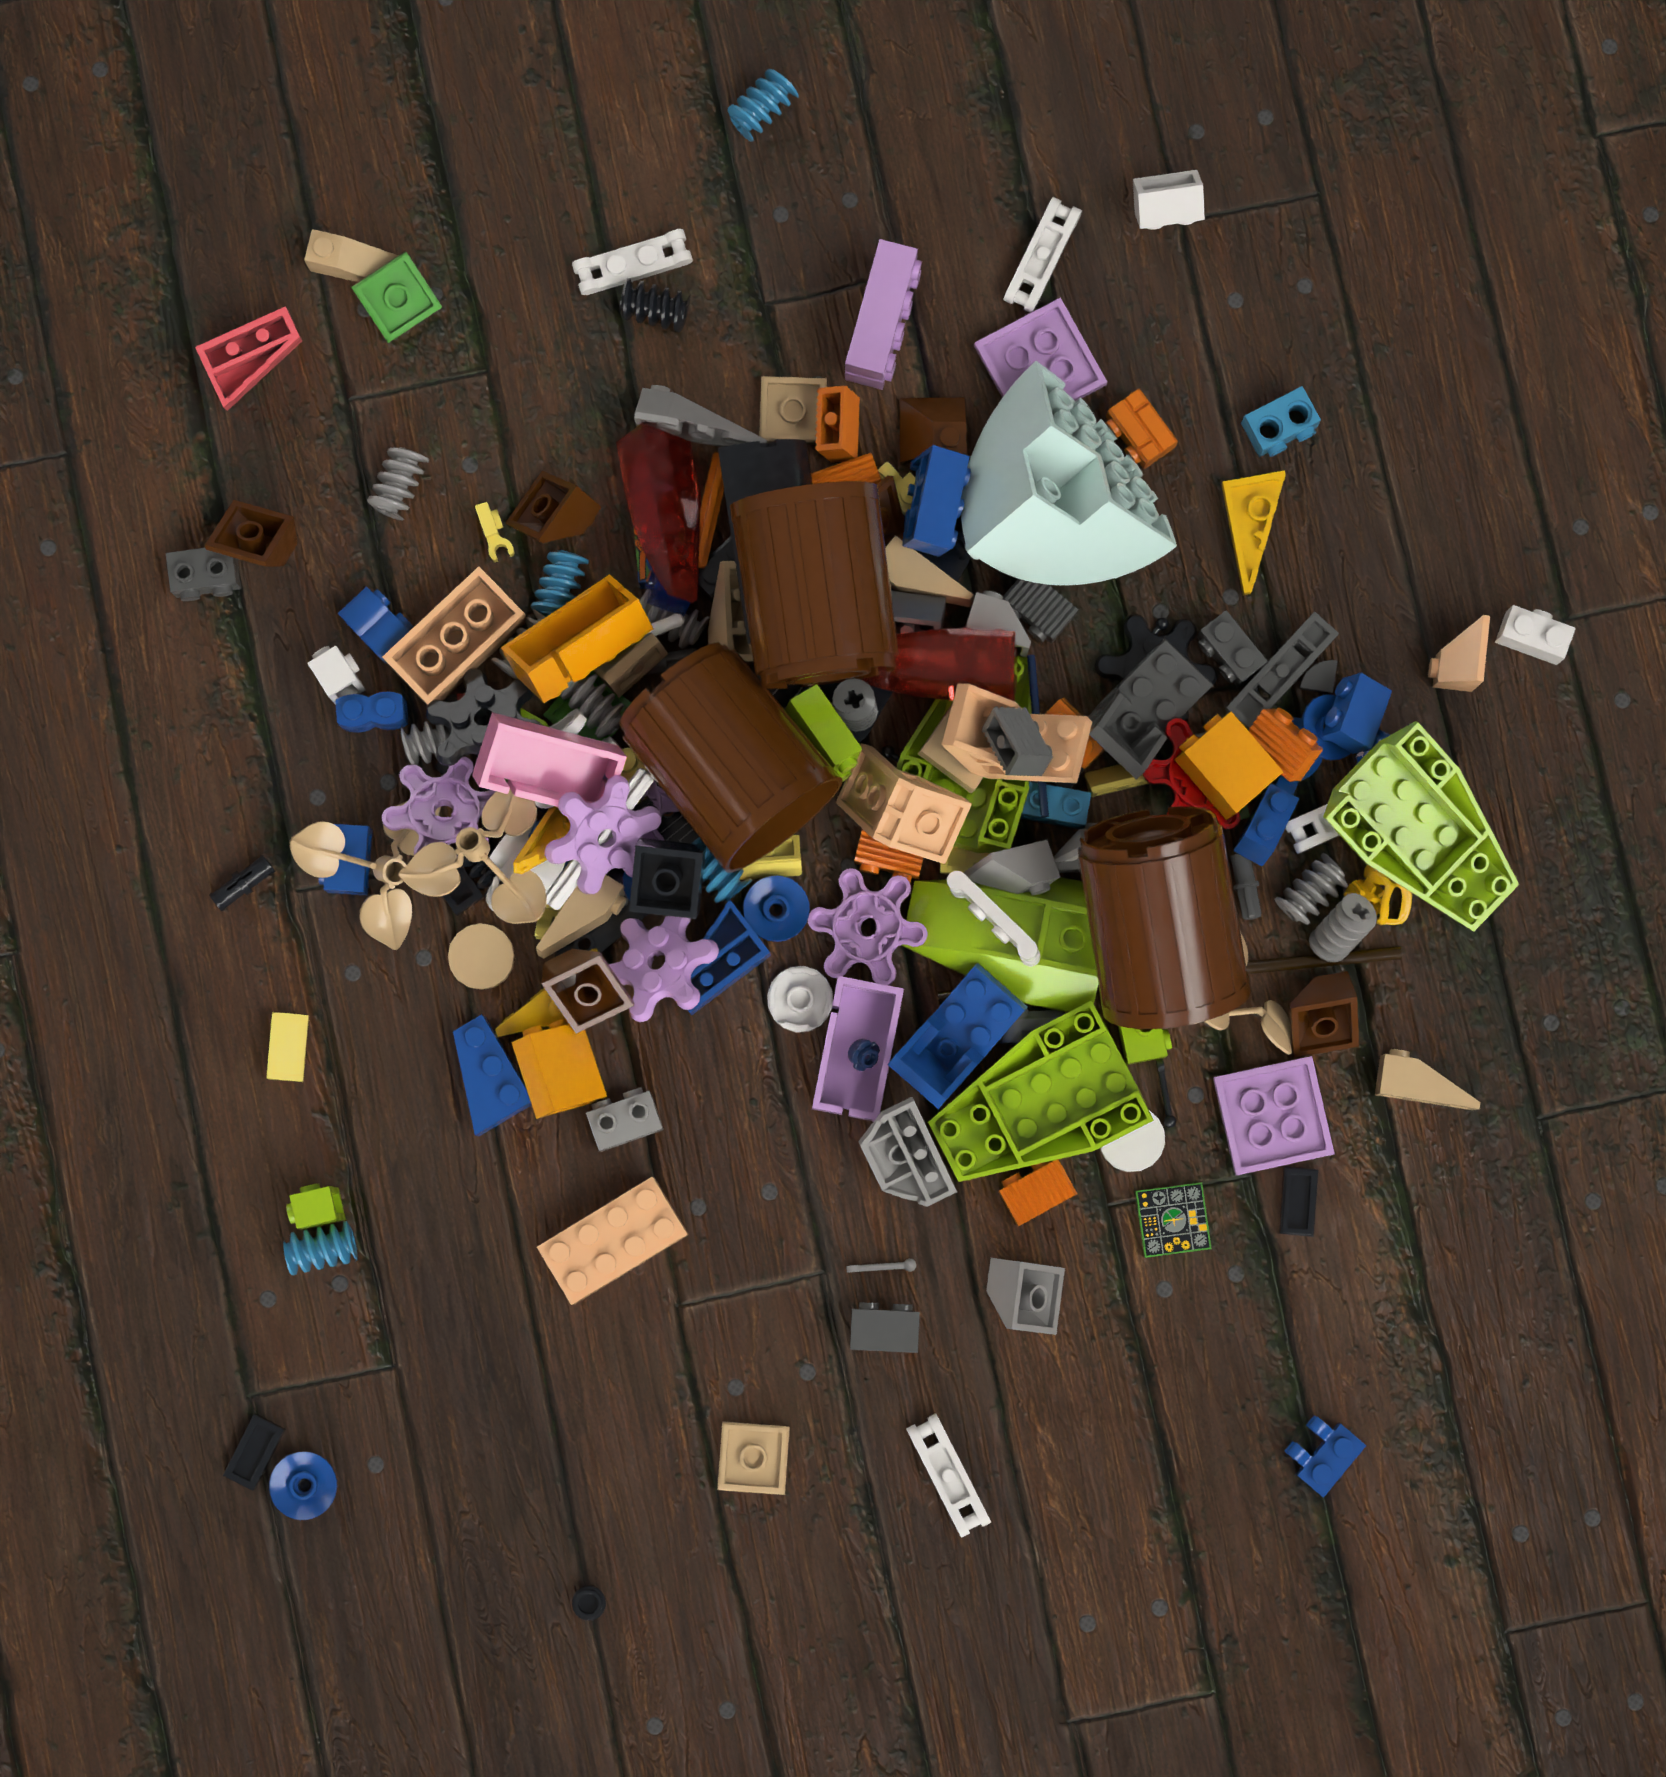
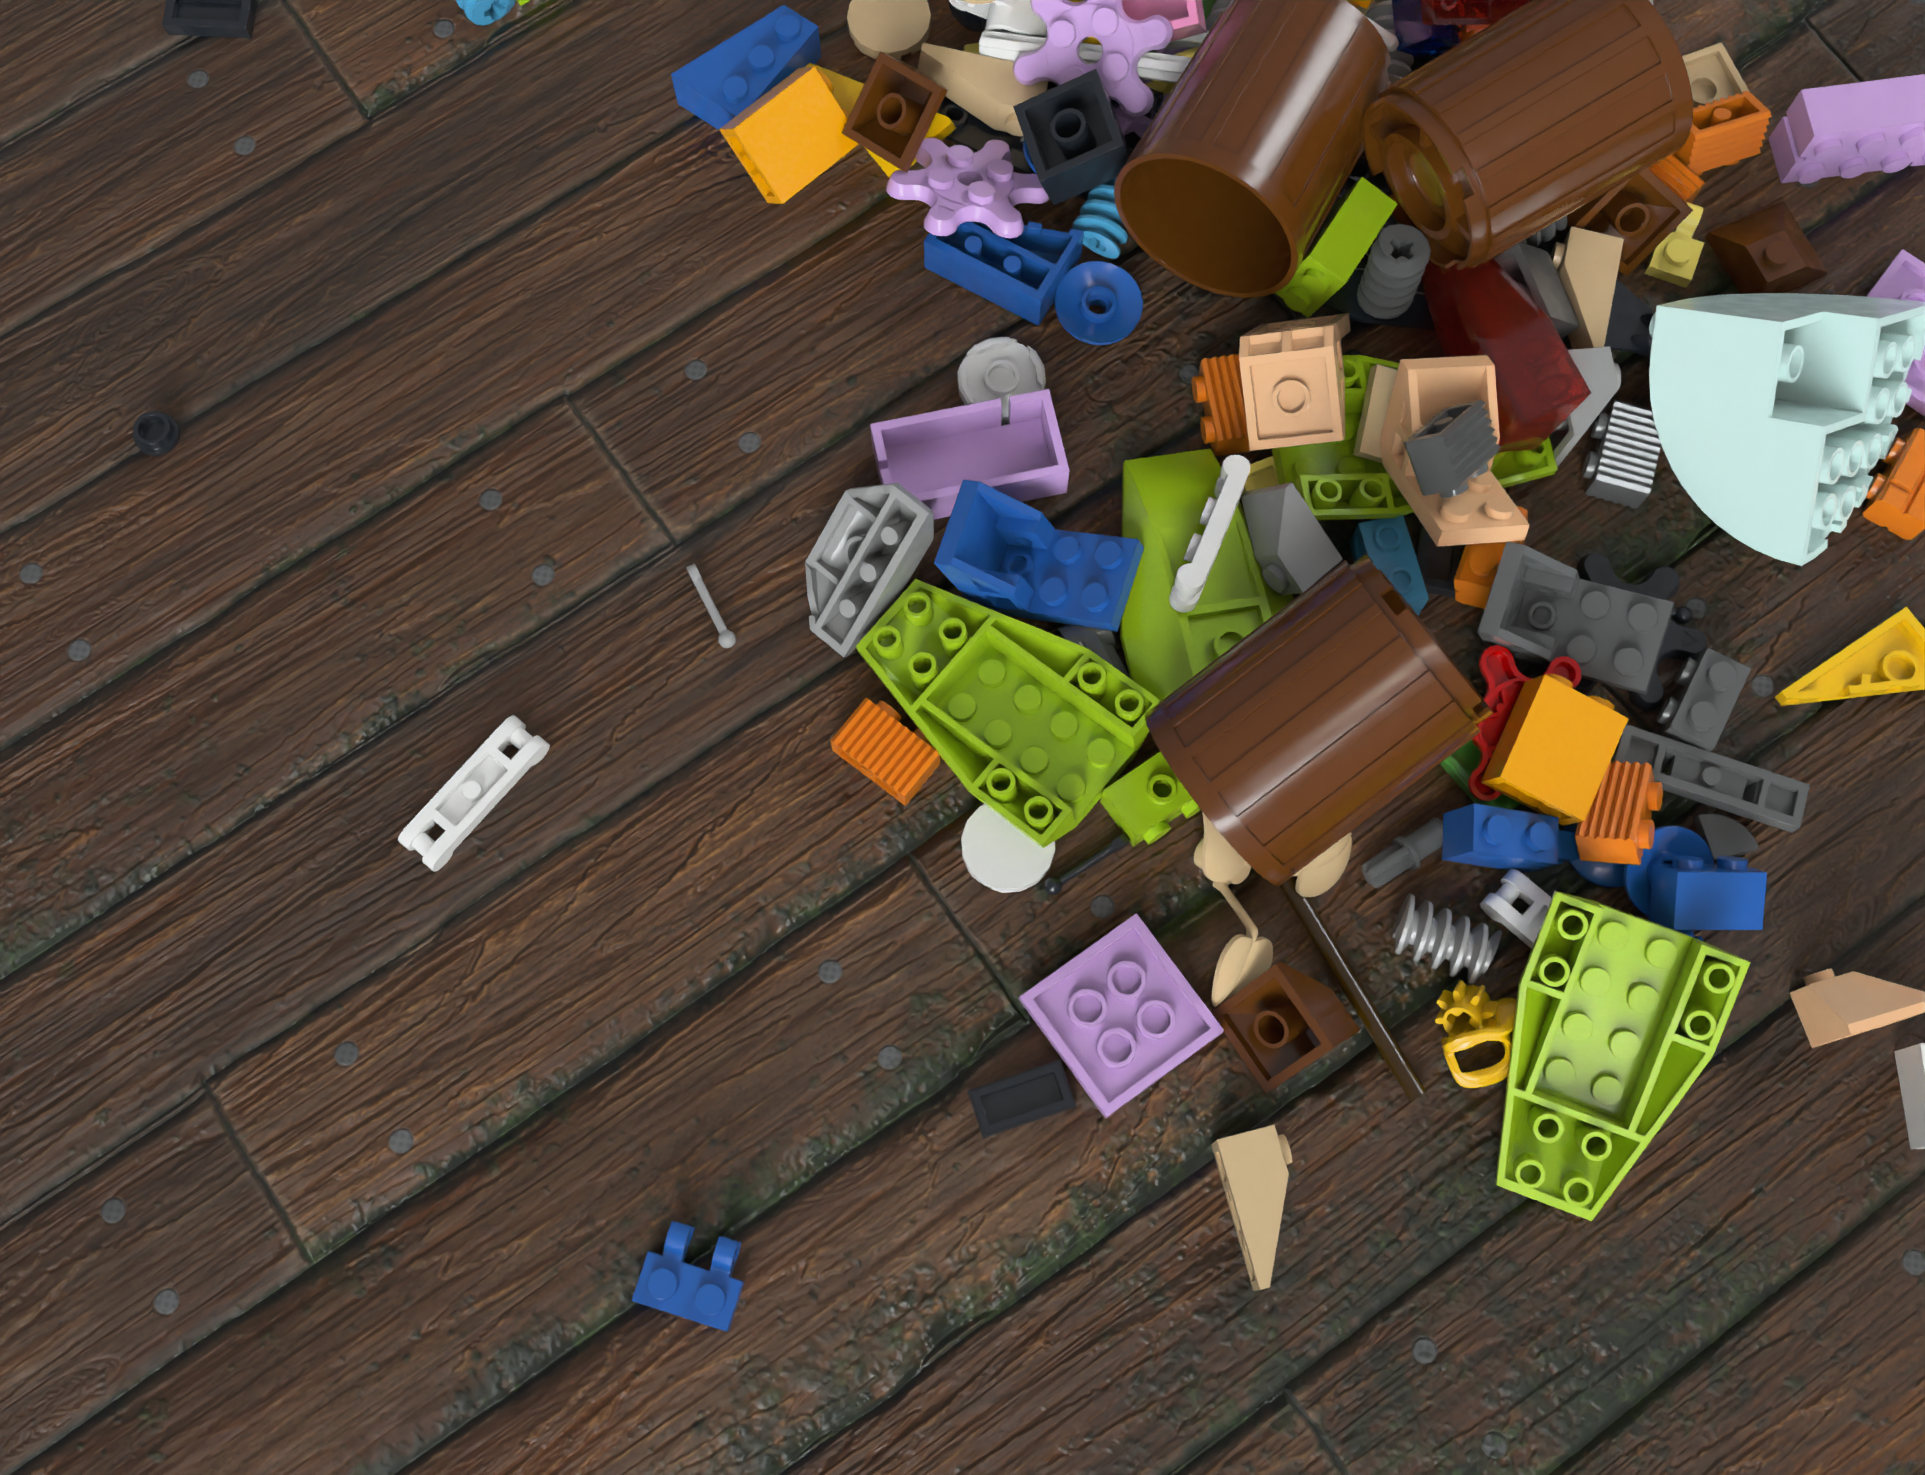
camera: 65 degrees right, 10 degrees down
(286, 1491) = (179, 58): blue dish -> none
(612, 1240) = (611, 281): light nougat brick -> none
(624, 1120) = (763, 239): light grey brick -> none
(753, 1458) = (408, 552): tan tile -> none
(781, 861) = (1161, 290): light yellow slope -> none
(846, 921) = (1123, 388): lavender plate -> none
(863, 1054) = (964, 452): dark blue plate -> none
(885, 1329) = (628, 632): dark grey brick -> none
(935, 500) = (1694, 262): blue wedge -> none
(1026, 1294) = (745, 792): light grey slope -> none
(1043, 800) = (1507, 484): dark blue axle -> none
(1111, 780) = (1455, 636): light yellow slope -> none
(1173, 1220) = (925, 942): tile -> none
(1343, 928) = (1416, 995): light grey piece -> none

